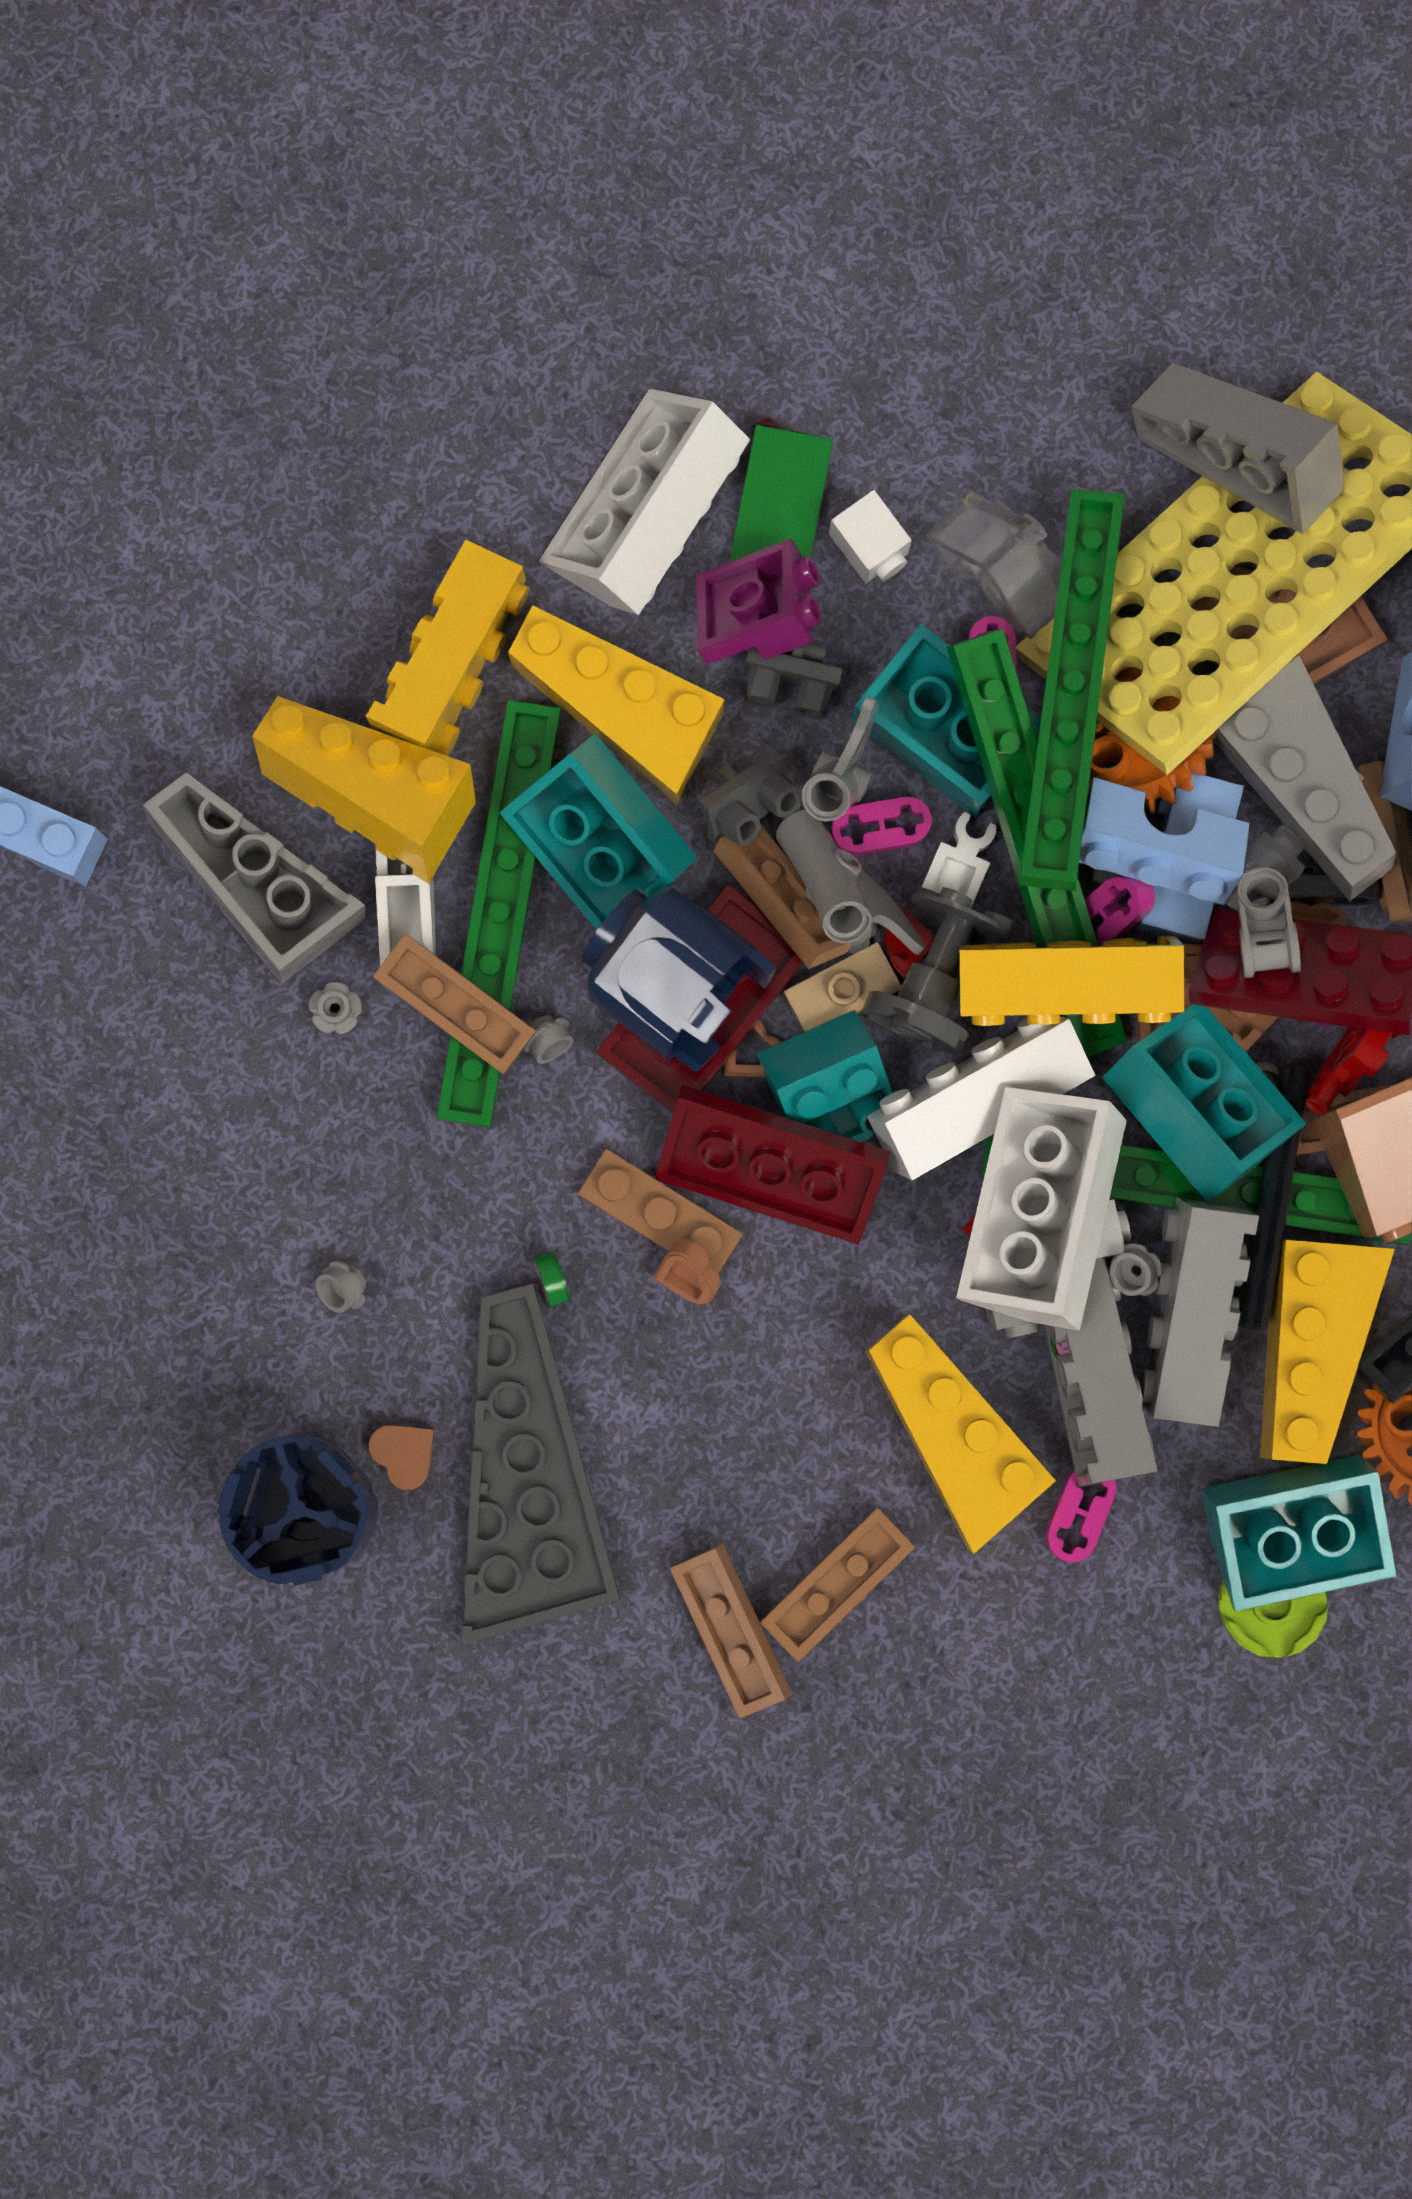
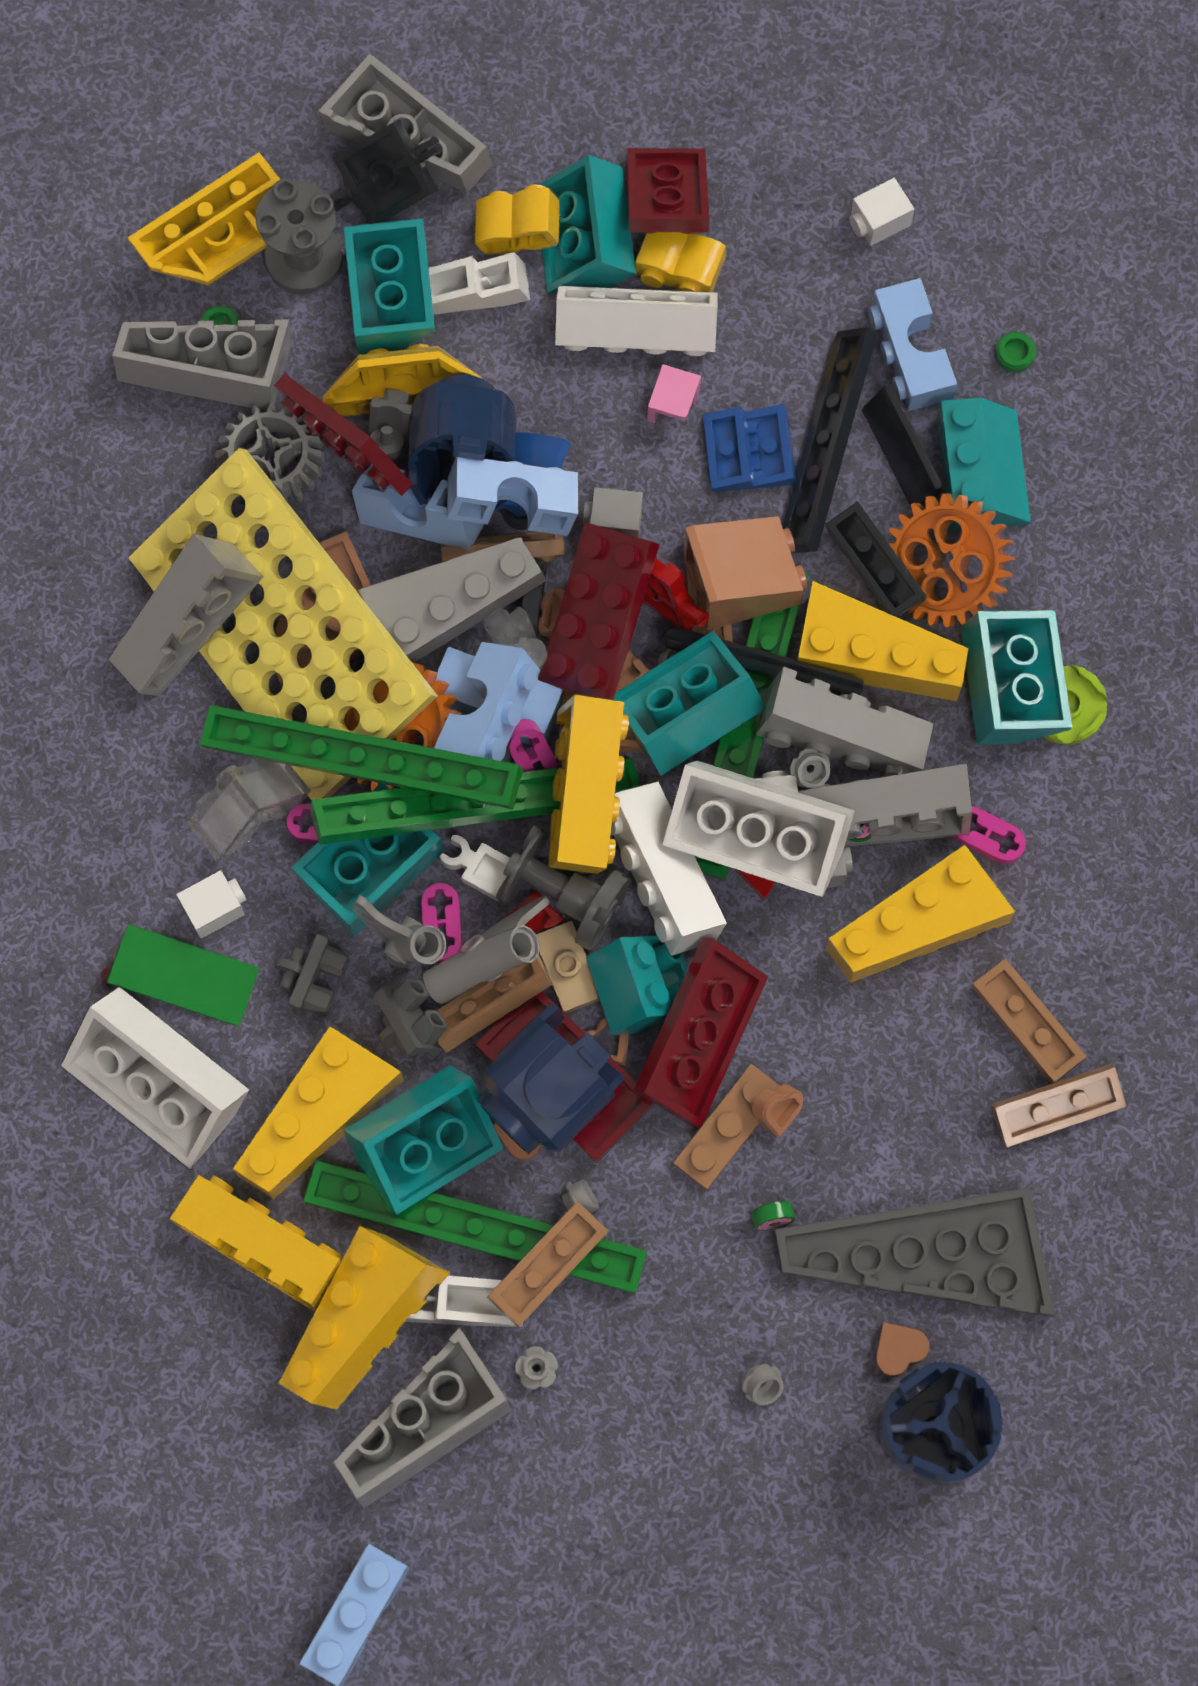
camera: 80 degrees left, 10 degrees down
(757, 604) = (255, 994): magenta plate -> none
(1267, 931) = (570, 636): light grey piece -> none

